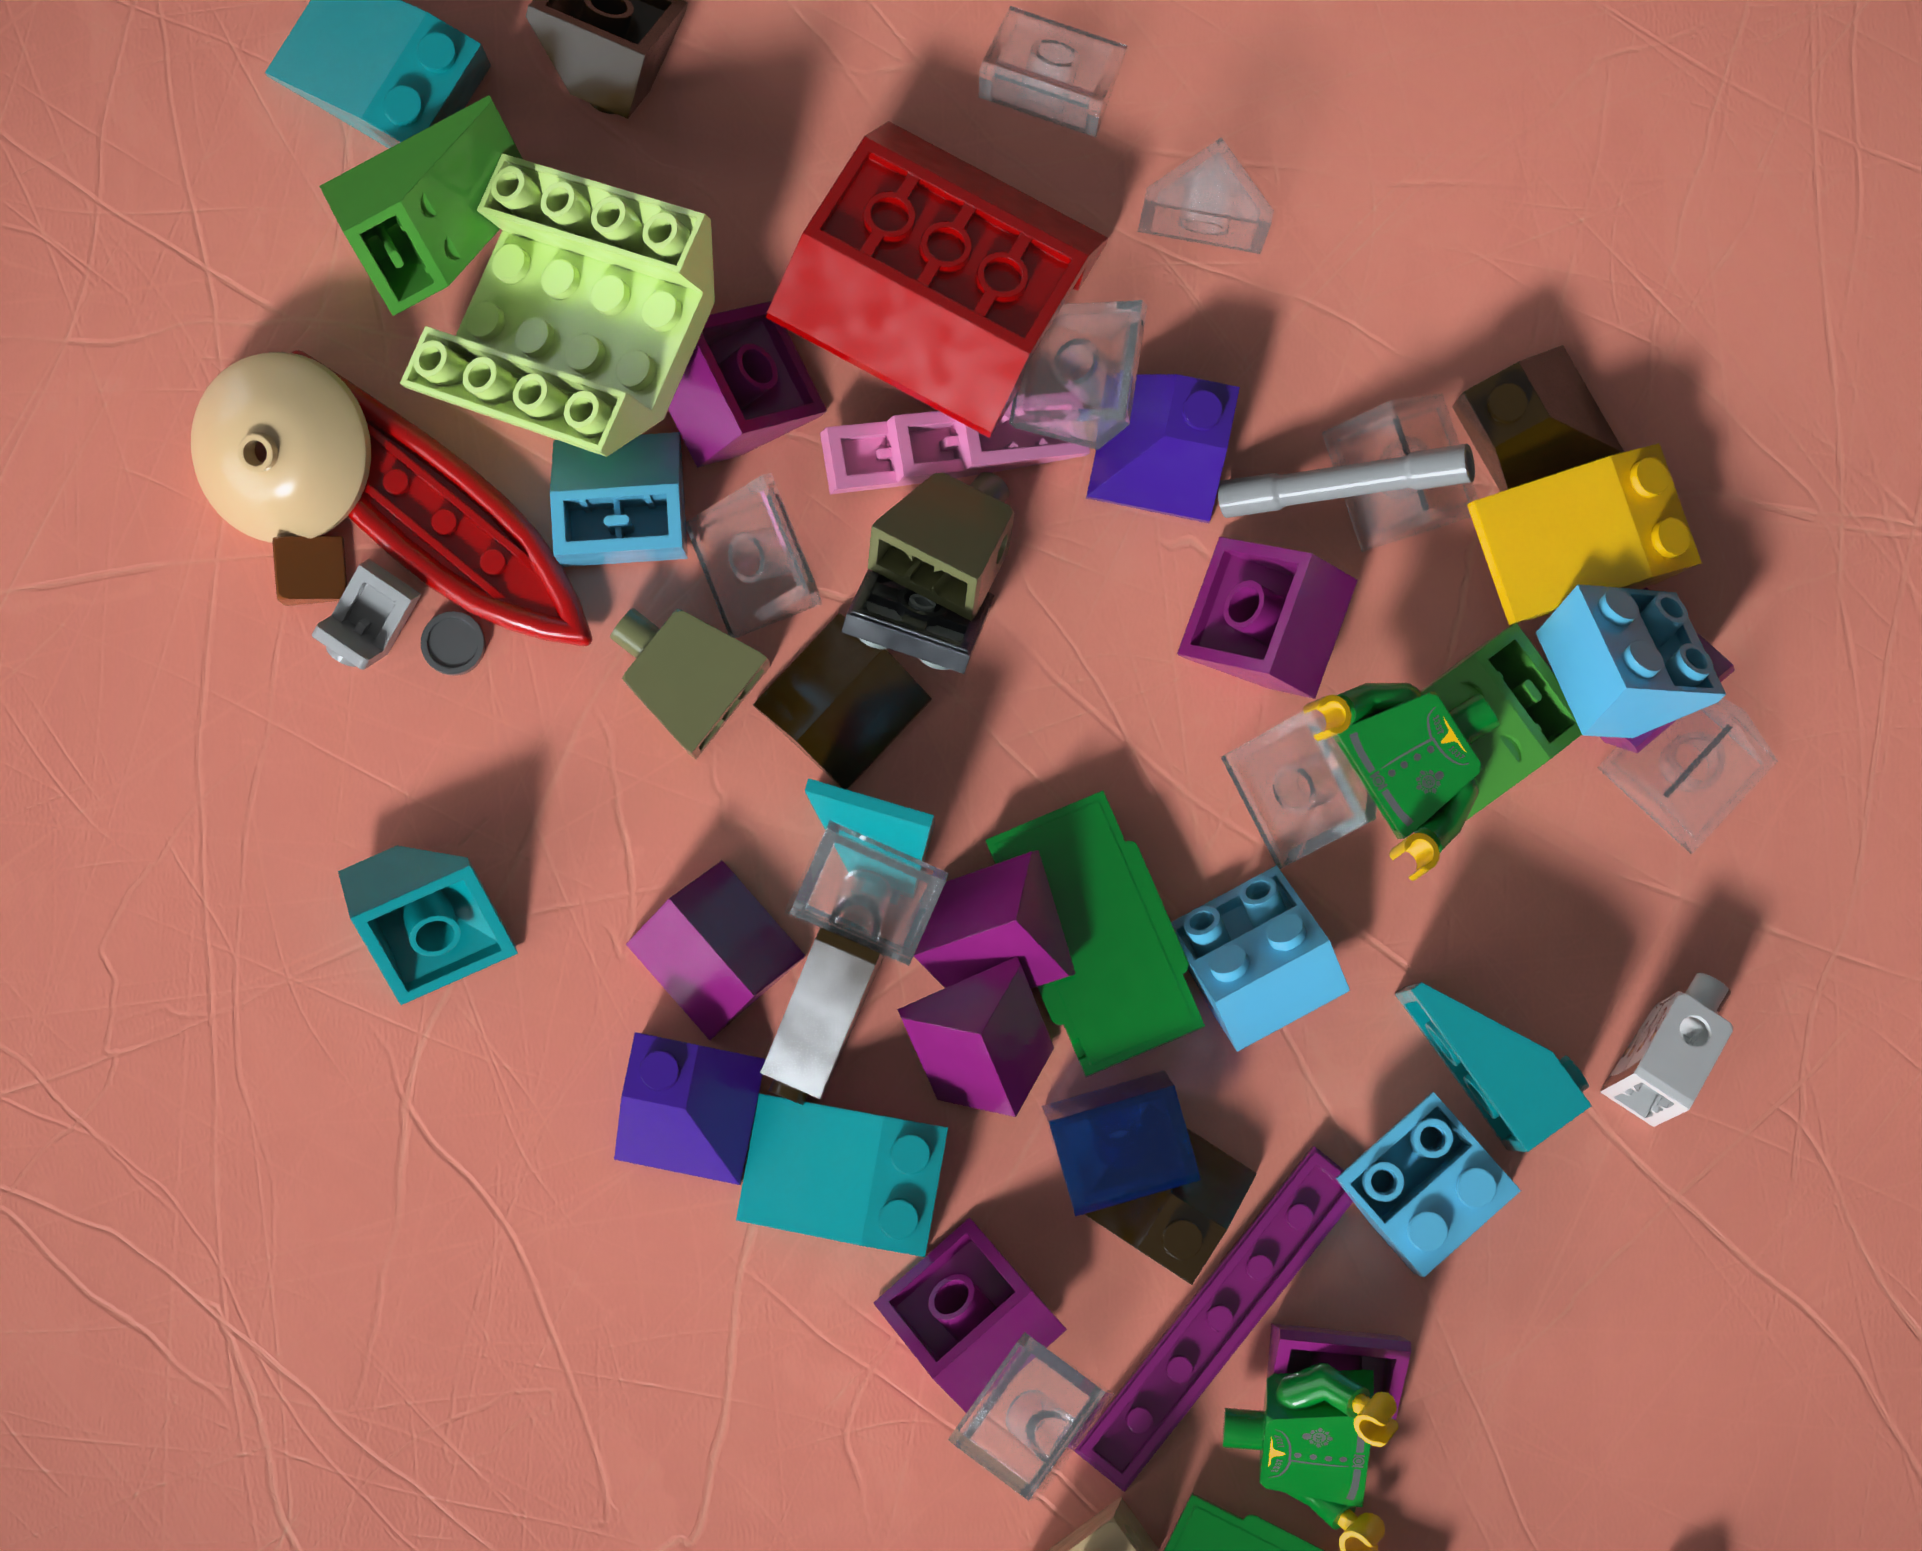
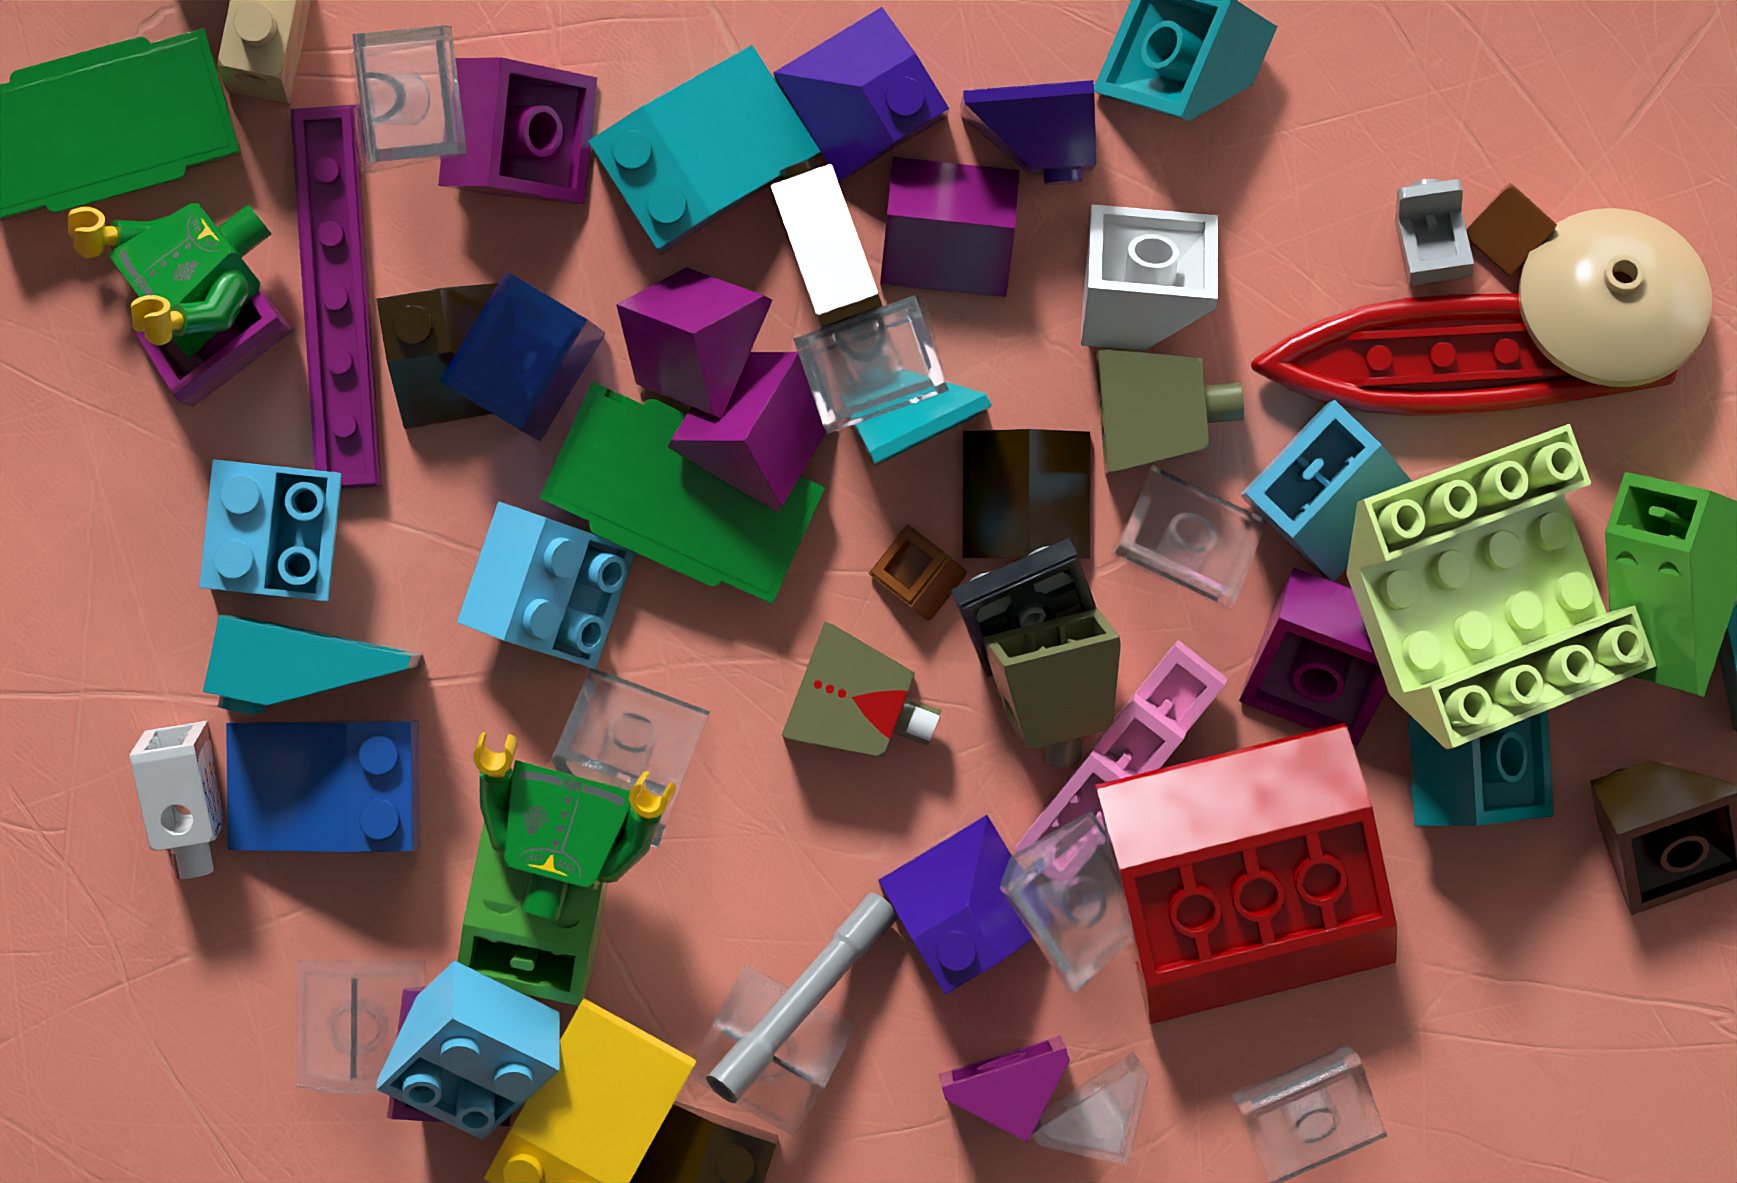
camera: 140 degrees right, 5 degrees up
(453, 643) = (1353, 273): dark grey piece -> none
(581, 957) = (1038, 126): none -> dark purple slope
(604, 778) = (1146, 275): none -> white slope
(713, 181) = (1483, 780): none -> teal slope
(974, 718) = (918, 572): none -> dark orange slope
(1105, 665) = (856, 698): none -> olive torso
(1252, 281) = (1009, 1087): none -> magenta slope
(1268, 616) = (769, 846): magenta slope -> none
(1558, 961) = (323, 786): none -> blue slope

